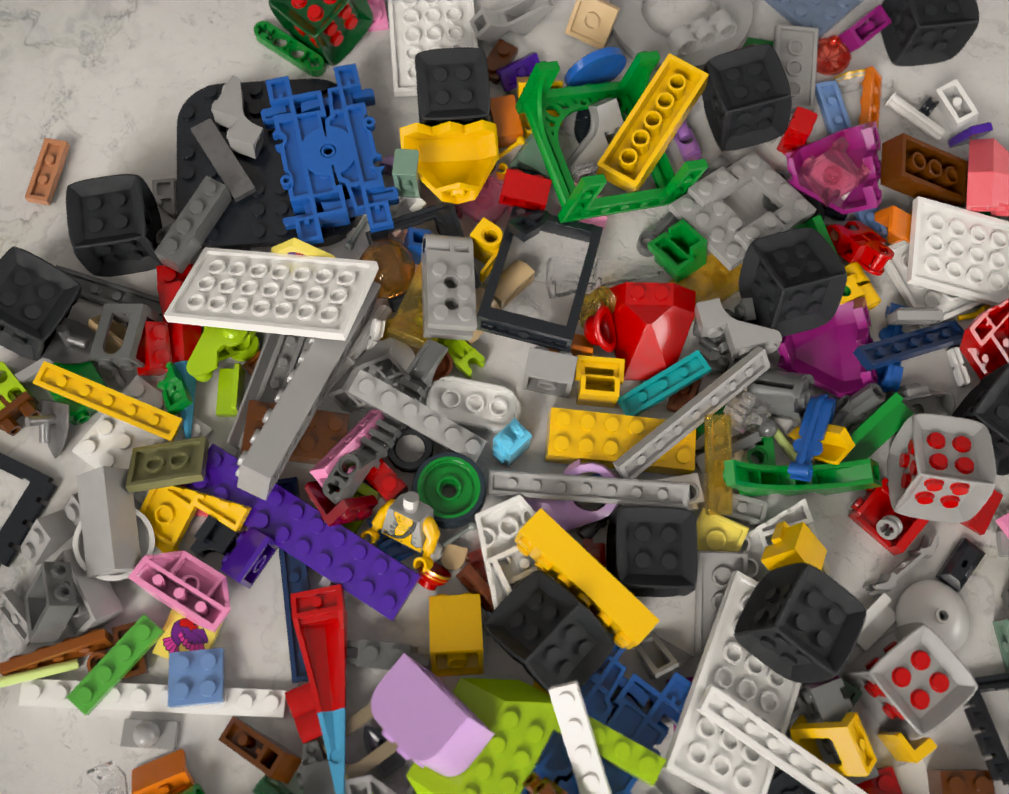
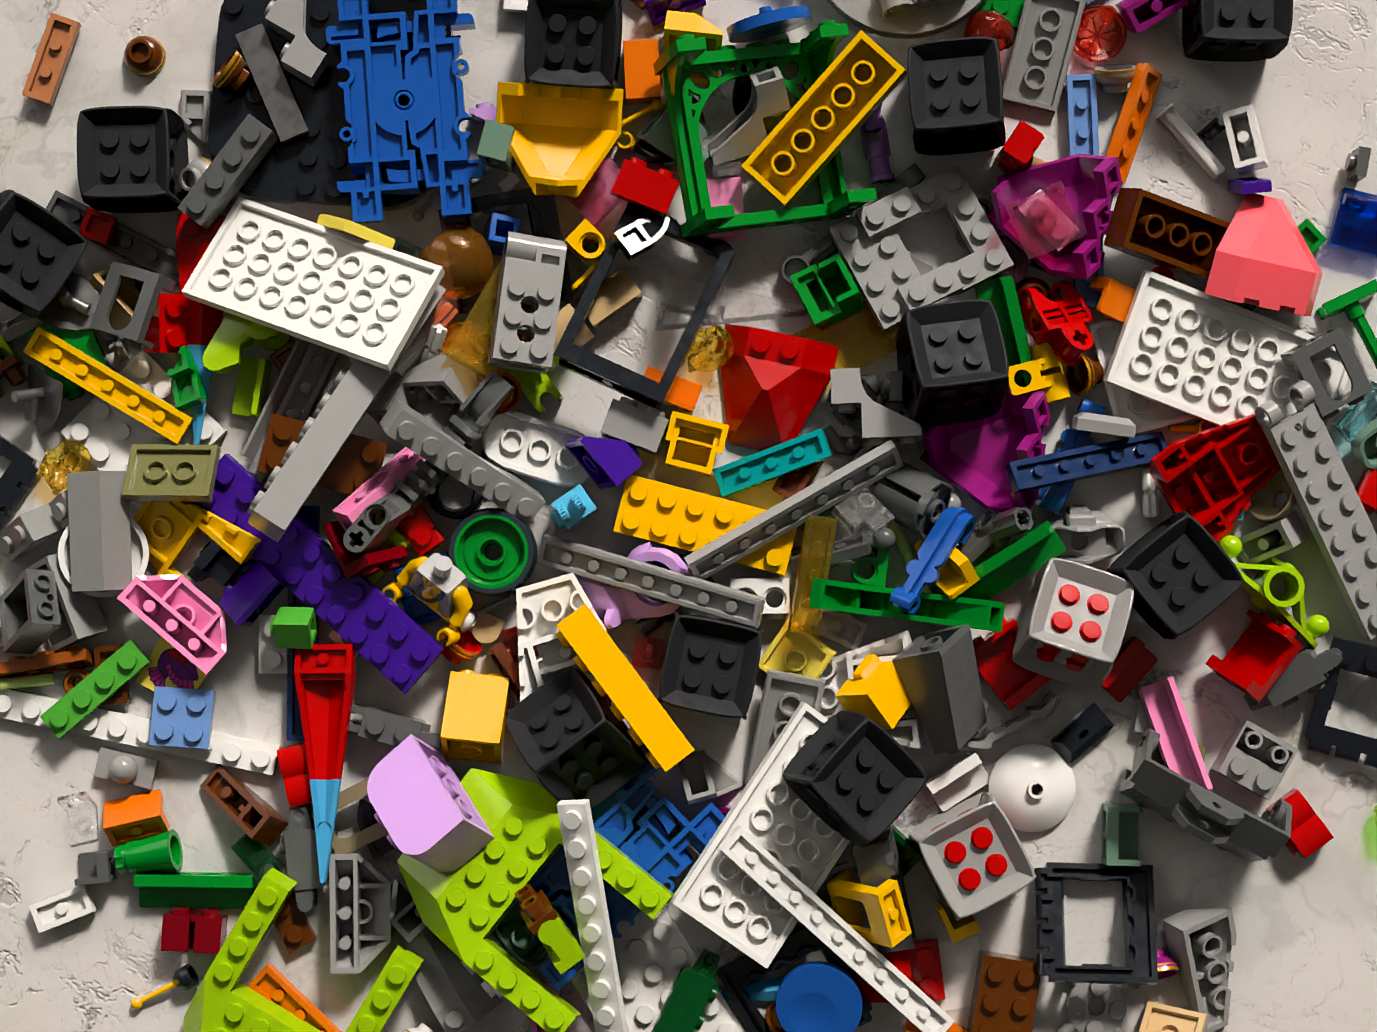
camera: 20 degrees right, 15 degrees up
(66, 477) = (66, 458): none -> clear yellow hat
(93, 283) = (98, 226): none -> red plate
(121, 161) = (144, 56): none -> reddish brown piece
(189, 154) = (231, 73): none -> reddish brown piece
(271, 600) = (271, 659): none -> white plate
(288, 579) = (294, 627): none -> bright green brick
(528, 398) = (605, 460): none -> dark purple slope
(600, 329) = (710, 382): red hat -> none
(847, 538) = (944, 686): none -> dark grey slope
(886, 285) = (1084, 376): none -> reddish brown piece
(894, 522) = (1004, 677): light grey bush -> none

